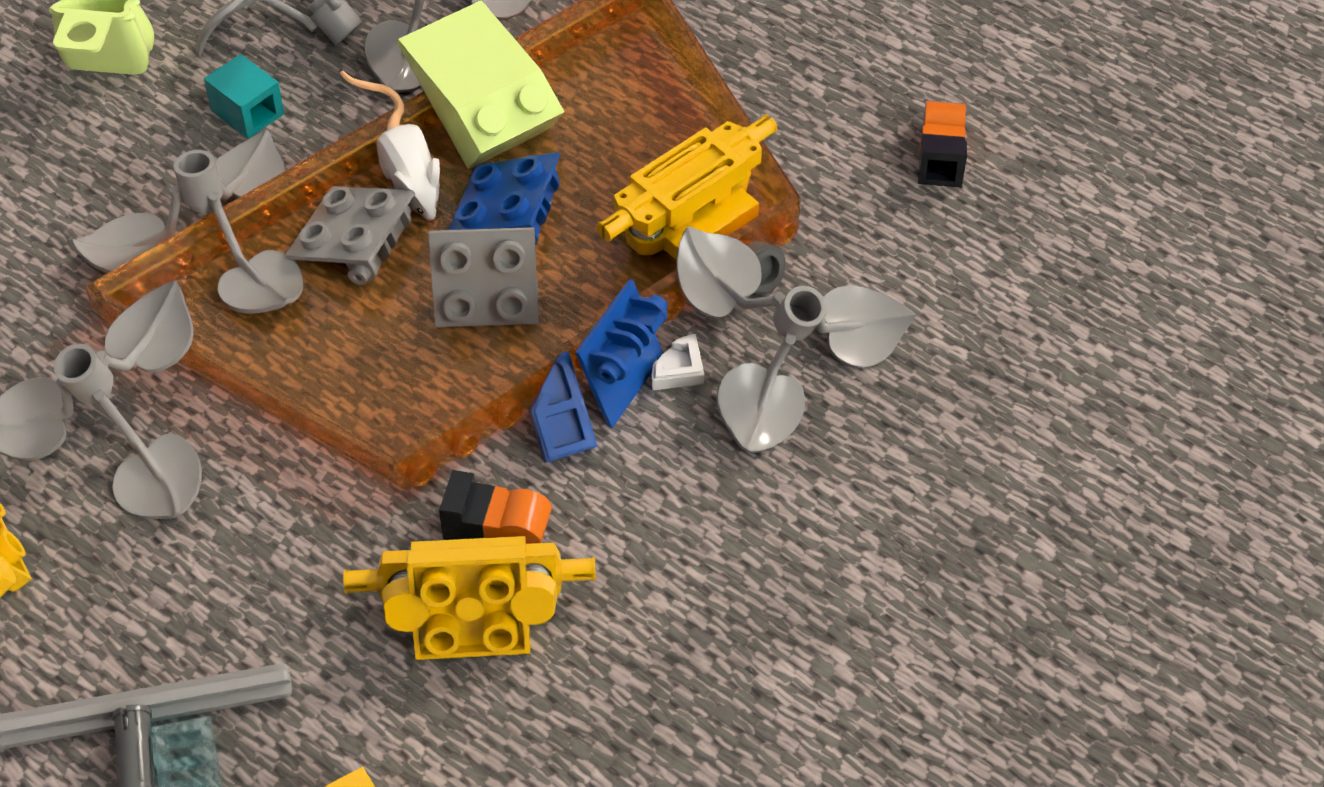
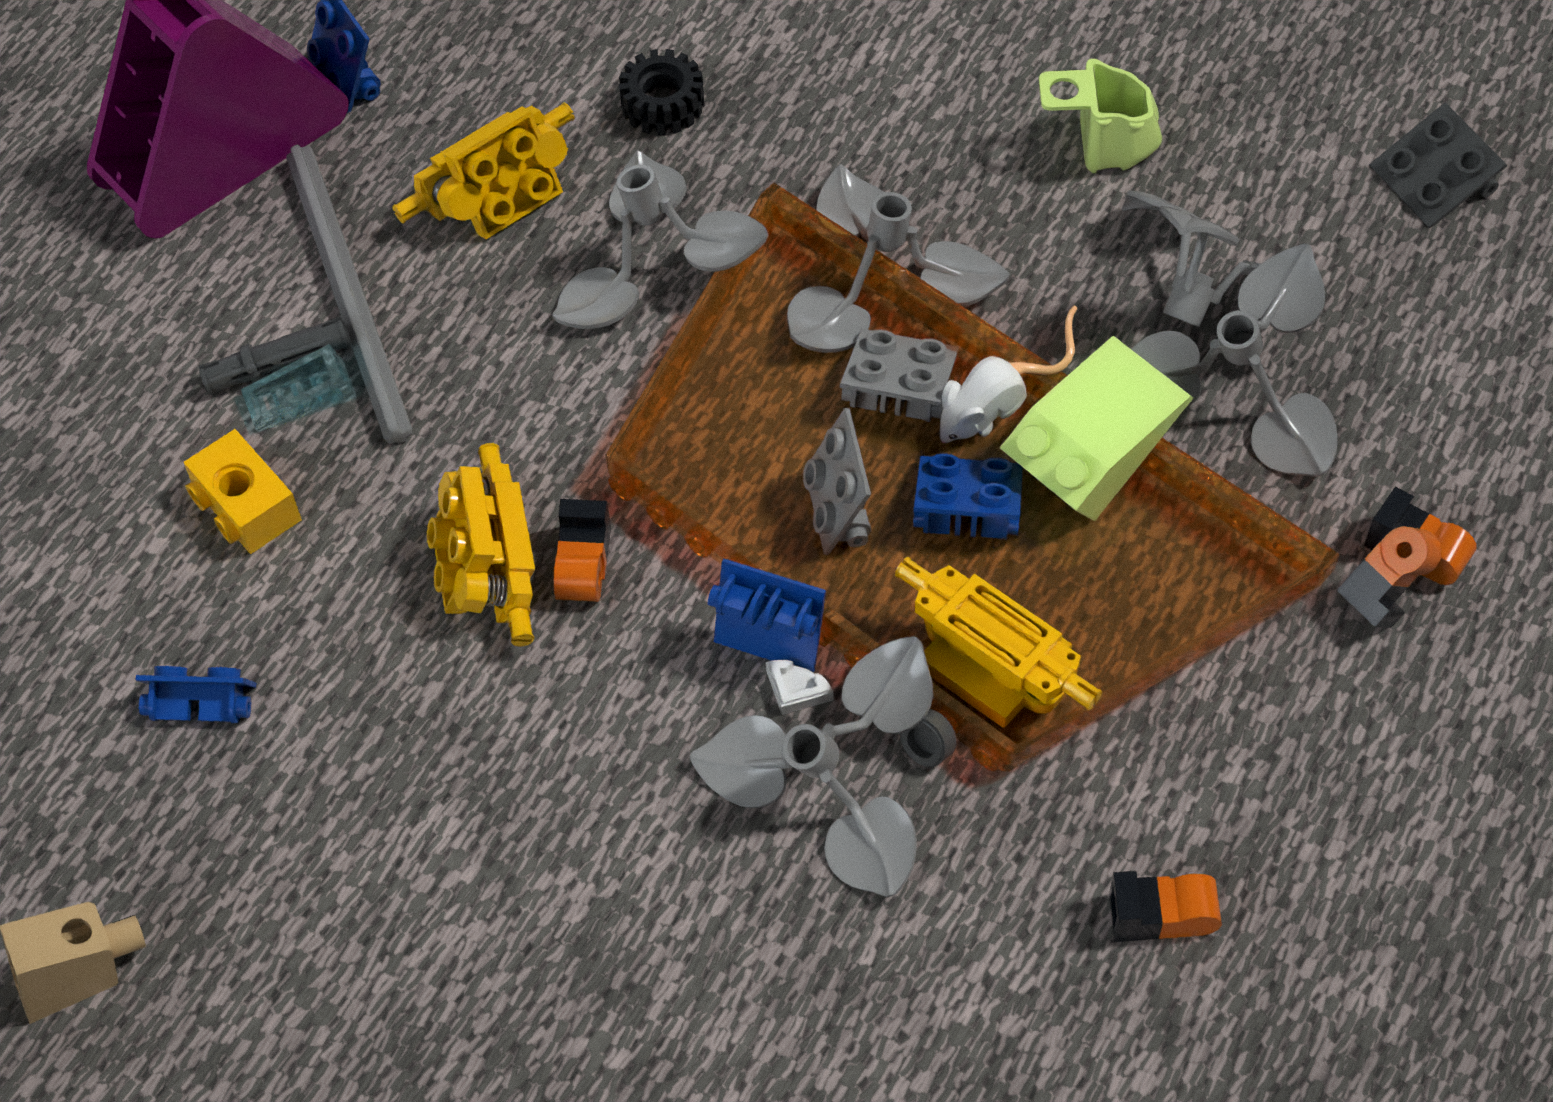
camera: 85 degrees right, 5 degrees up
(244, 96) = (1059, 250): teal brick -> none
(561, 414) = (689, 586): blue tile -> none

